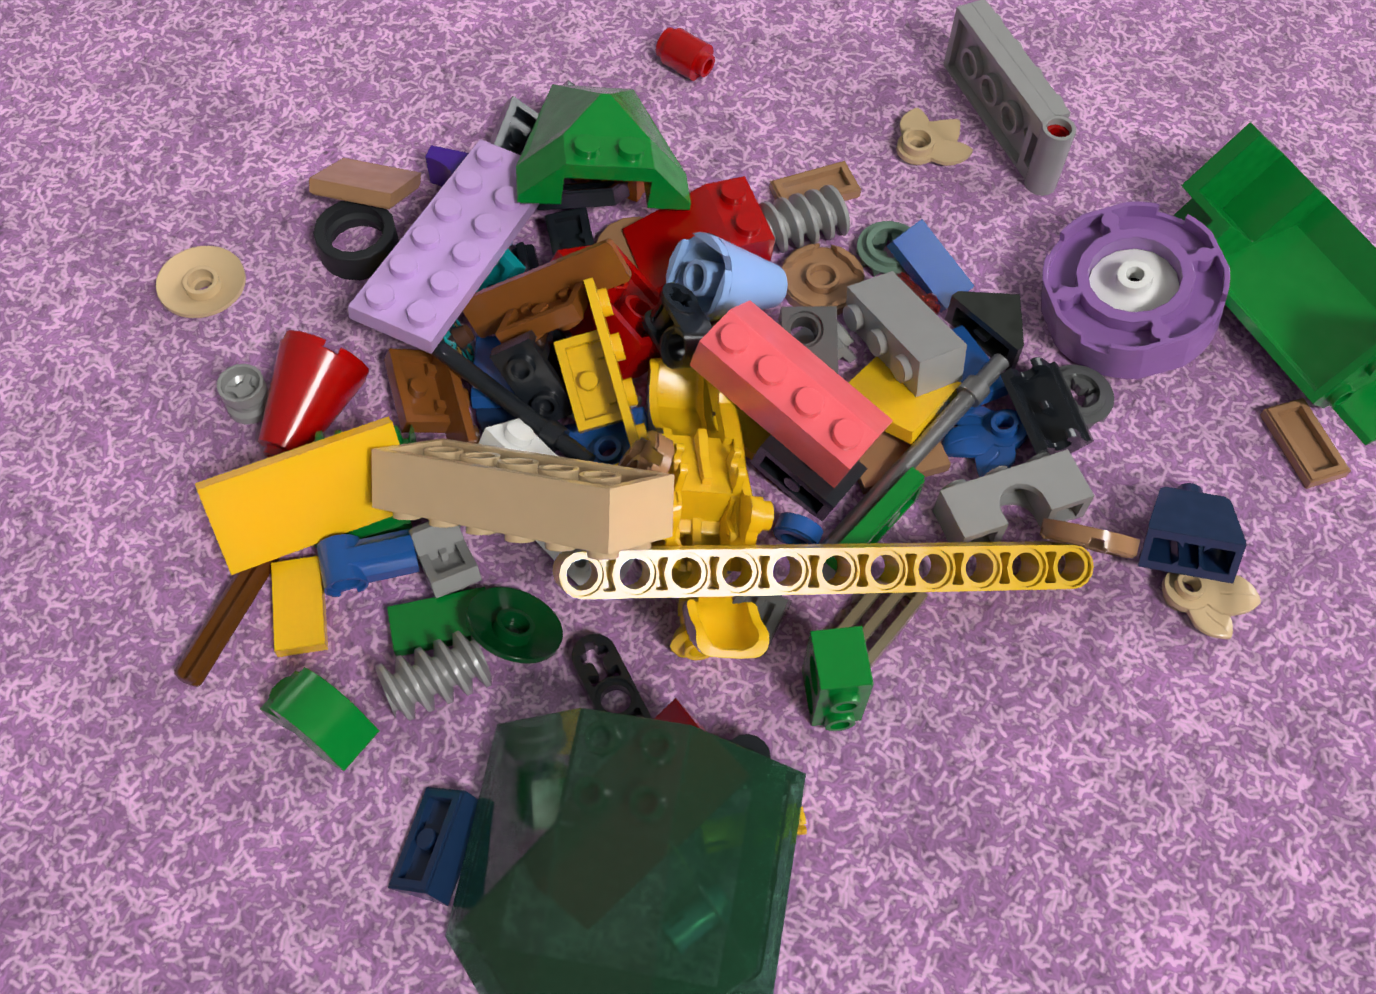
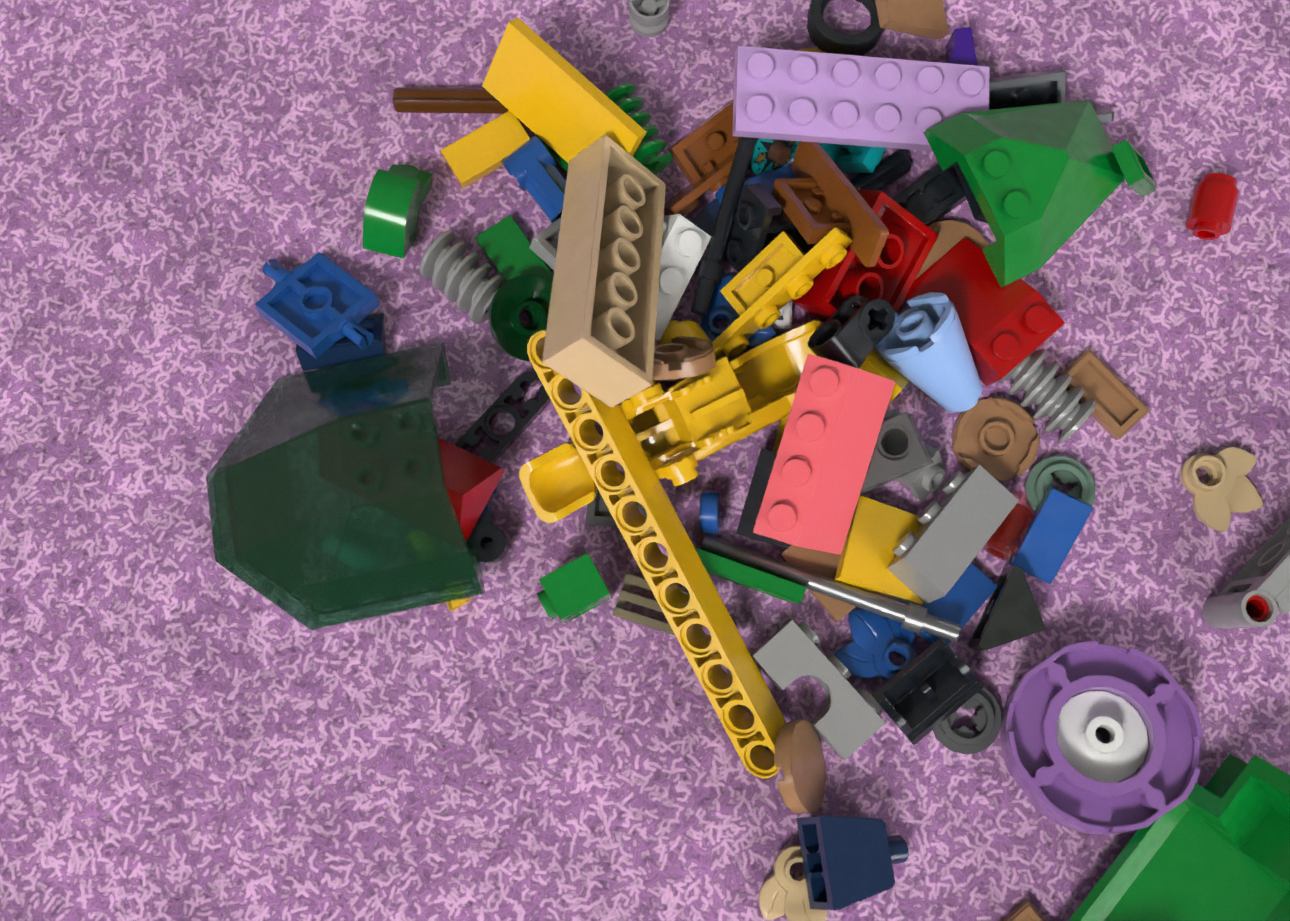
camera: 70 degrees right, 20 degrees up
(307, 391) = (664, 57): red cone -> none
(384, 846) = (317, 304): none -> blue plate
(629, 78) = (1134, 168): none -> green tile

